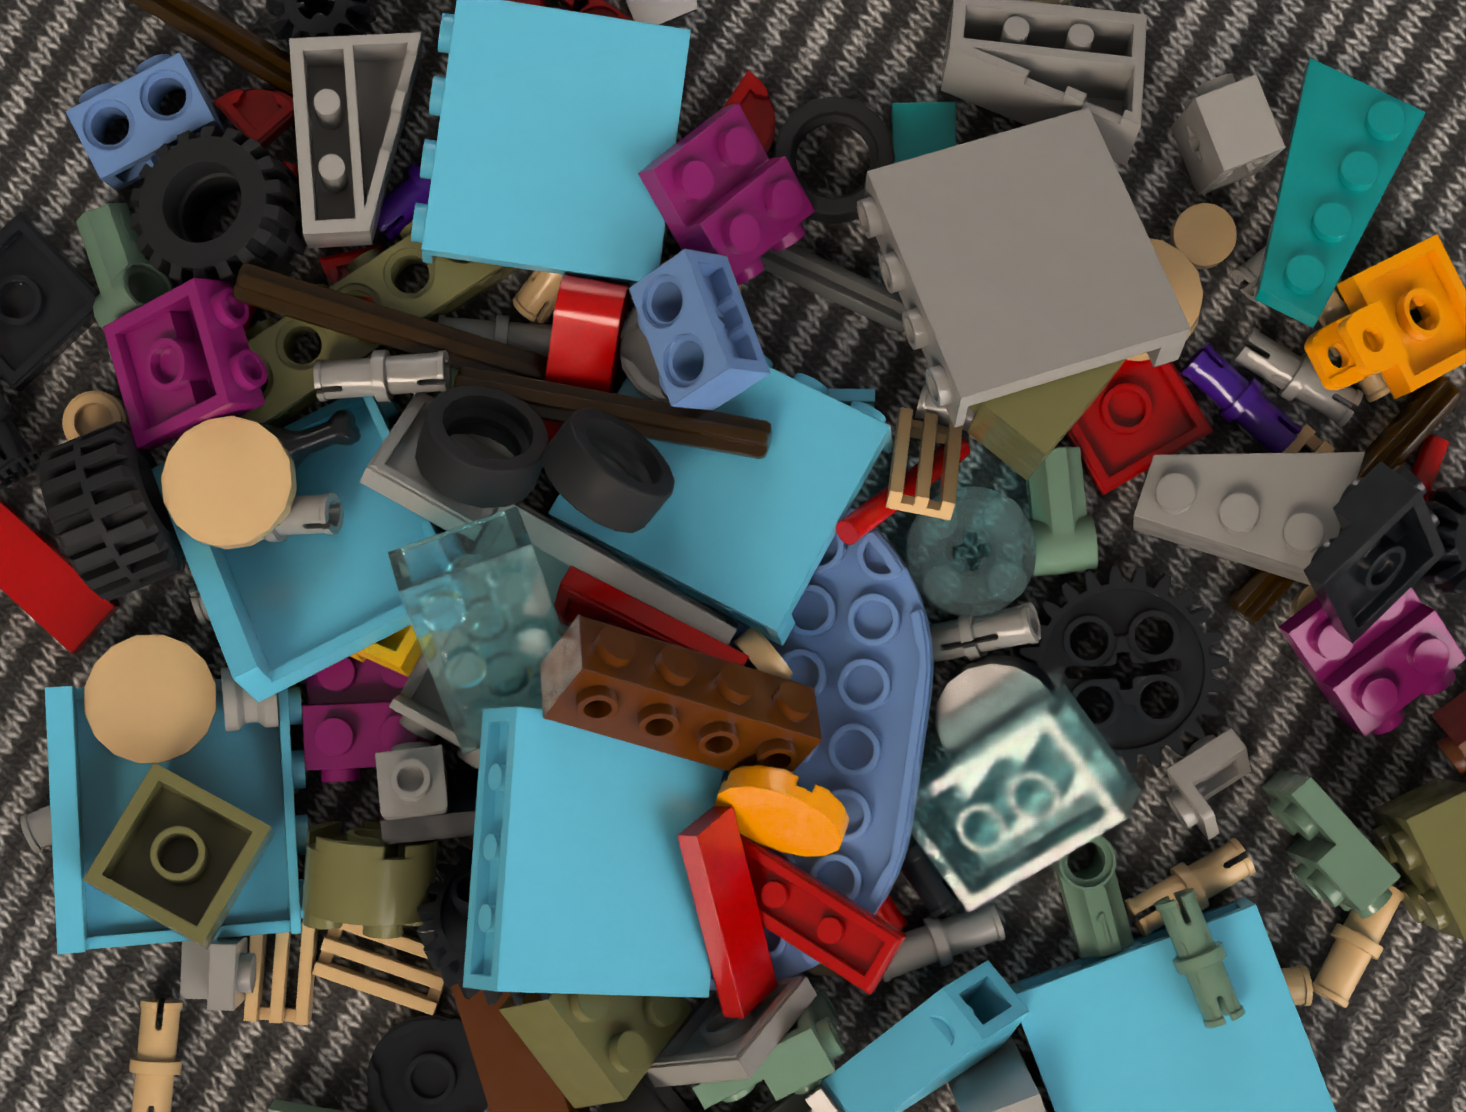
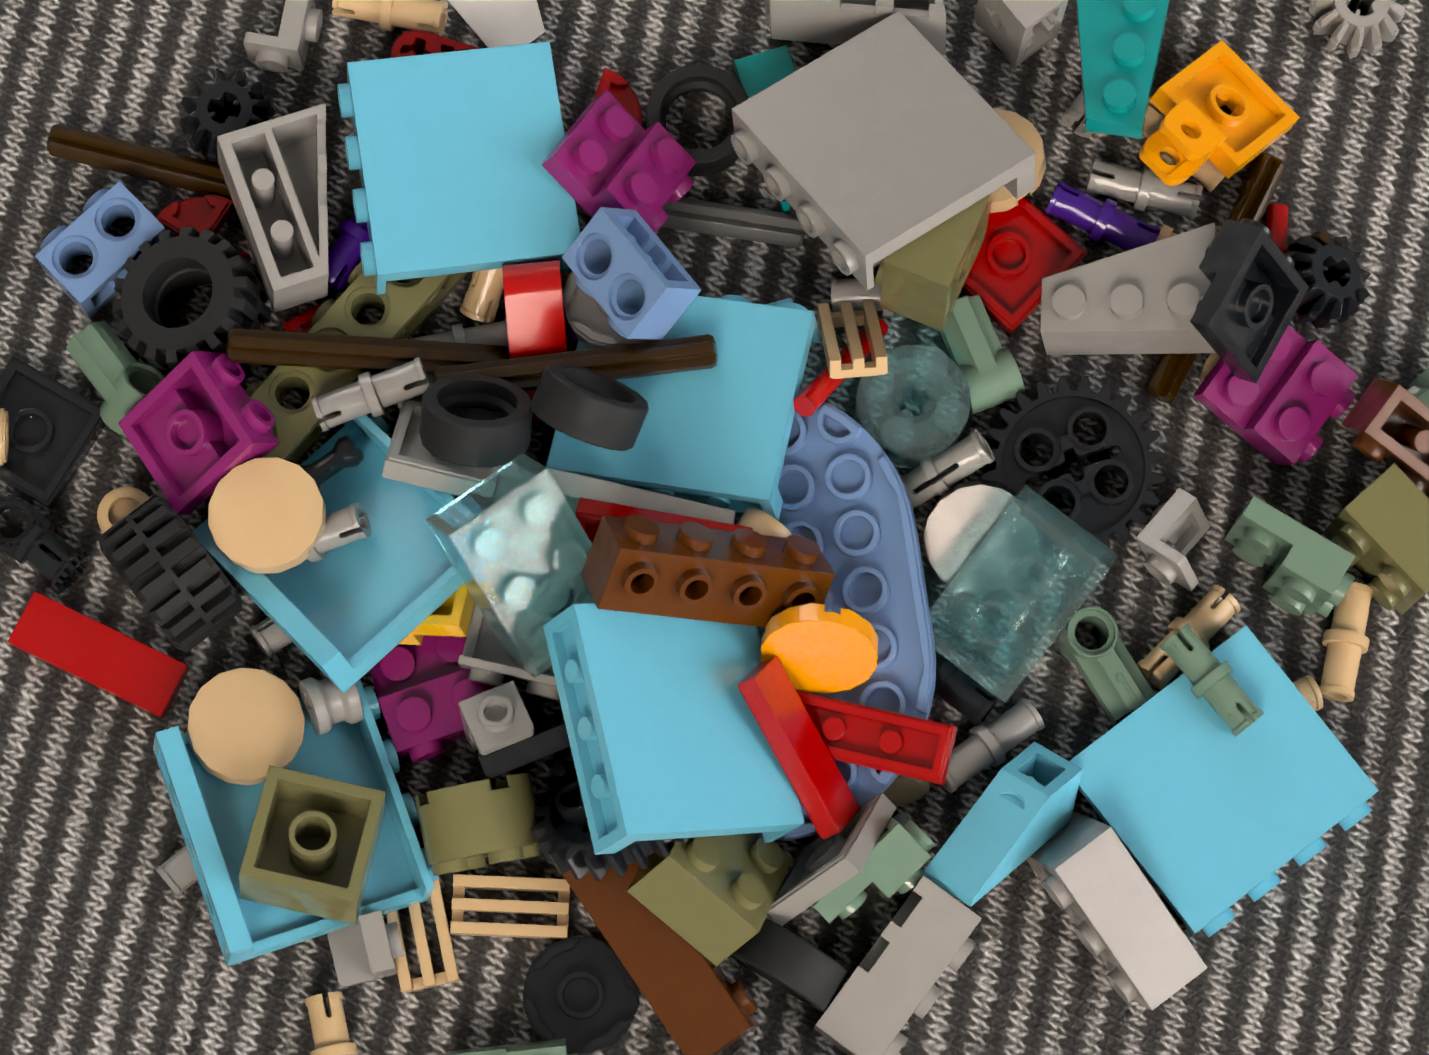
camera: 20 degrees left, 10 degrees down
(1204, 234) = (1029, 94): tan tile -> none

